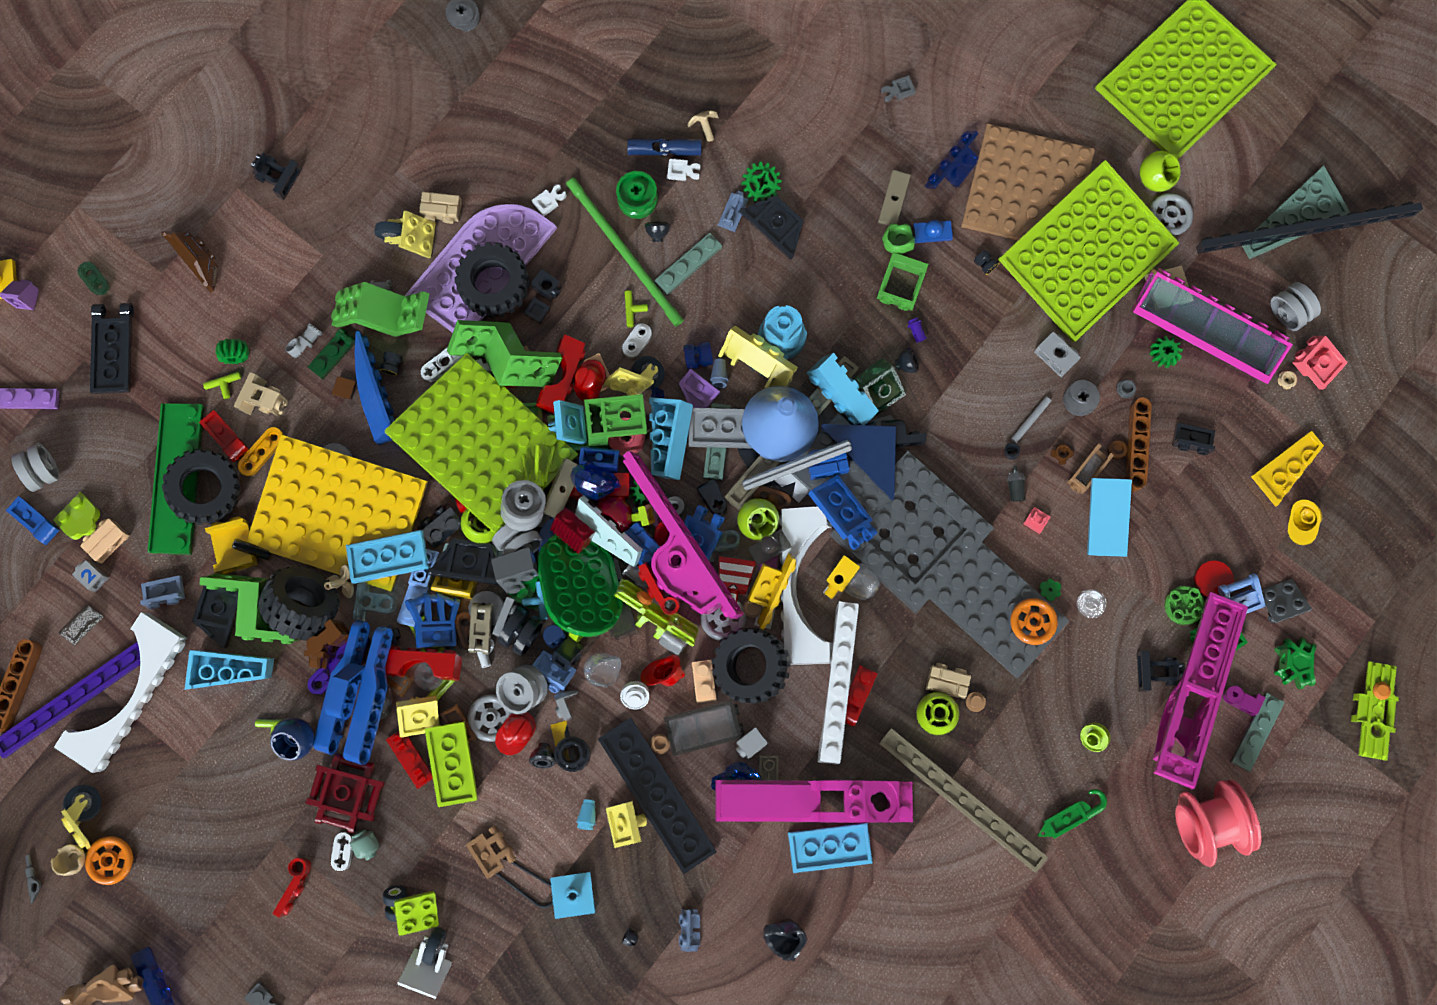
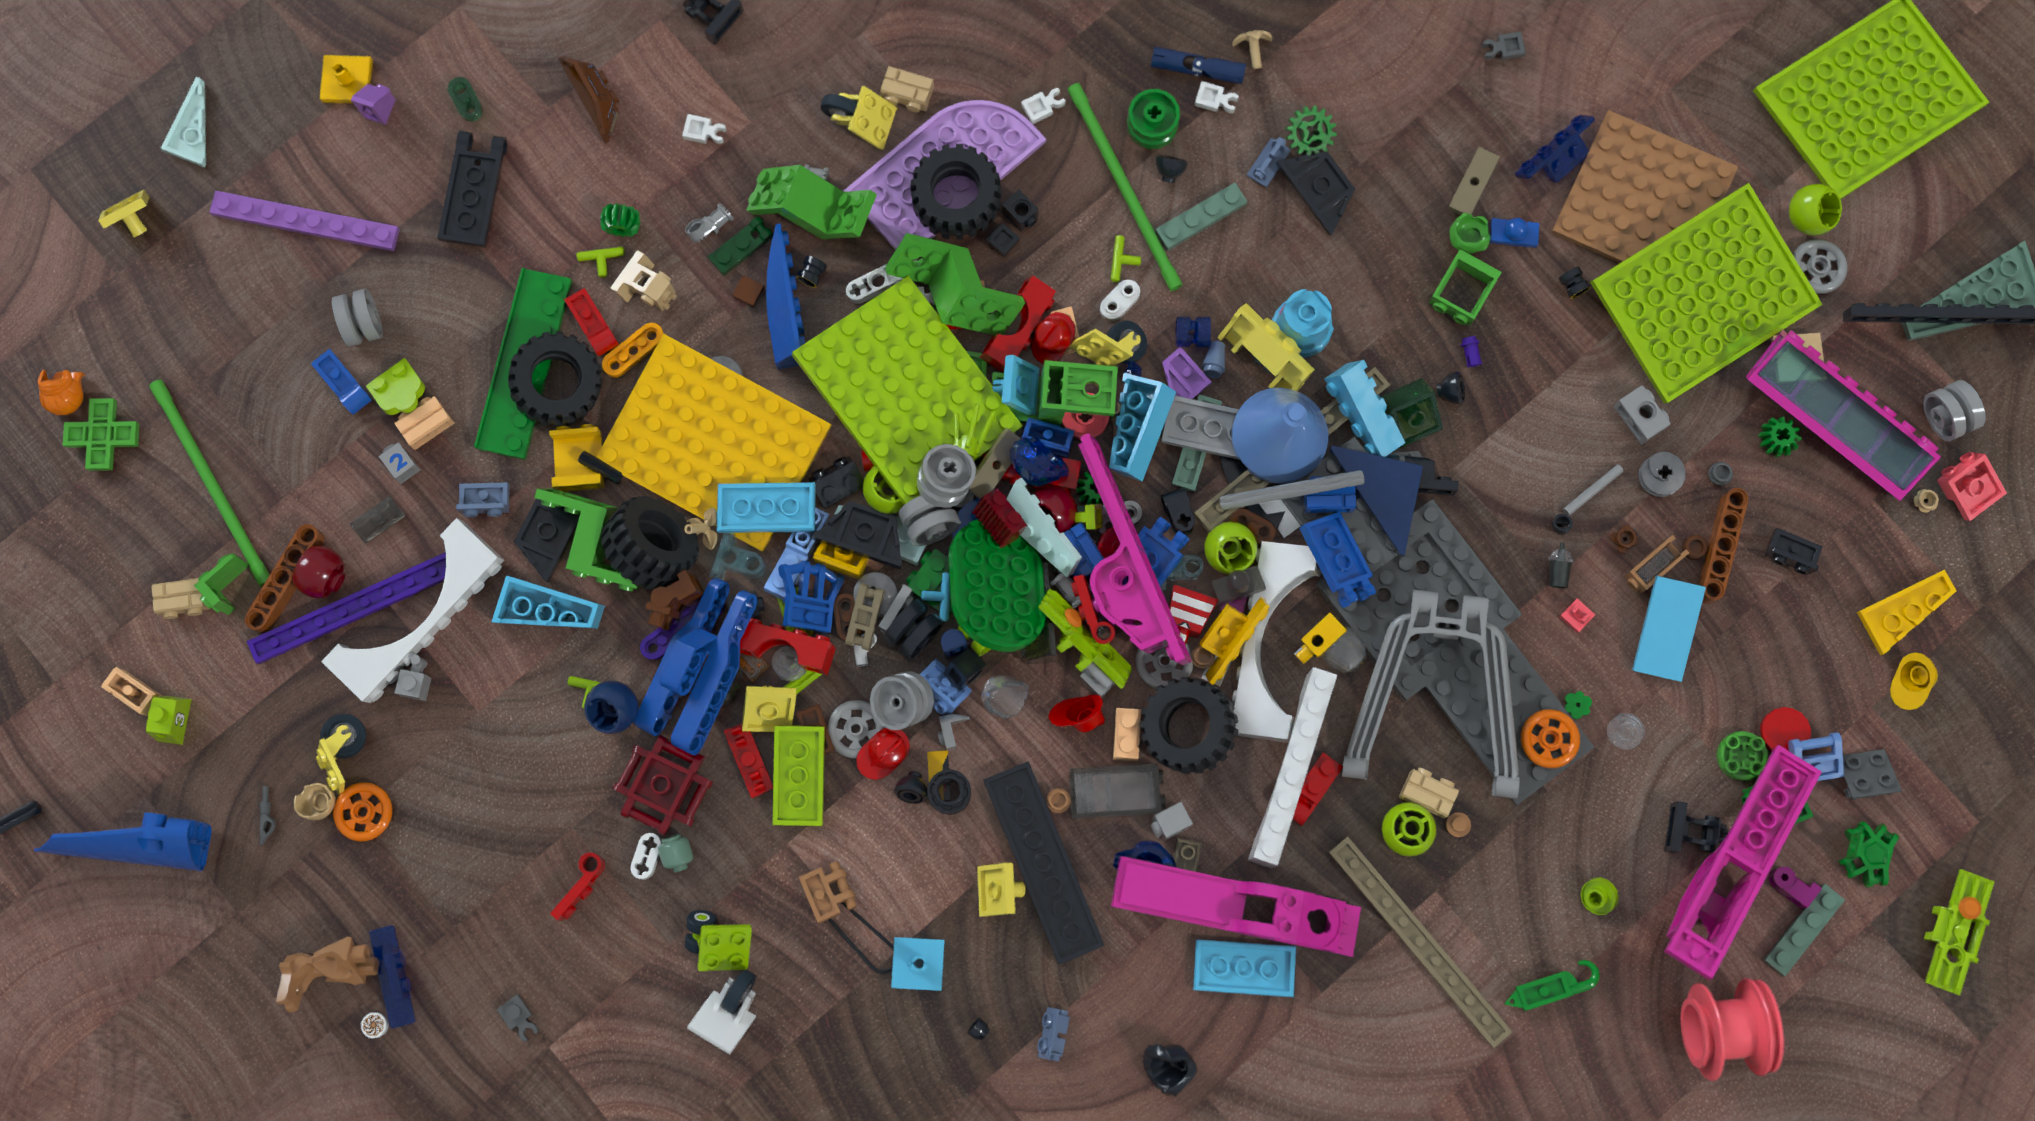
camera: 10 degrees right, 0 degrees up
(39, 676) = (319, 572): none -> dark red wheel
(132, 749) = (414, 683): none -> light grey brick
(284, 268) = (700, 129): none -> white plate
(514, 569) = (921, 551): dark grey brick -> none
(586, 817) = (952, 872): medium azure cone -> none
(635, 695) = (1038, 735): white plate -> none
(955, 545) = (1471, 625): none -> light grey piece

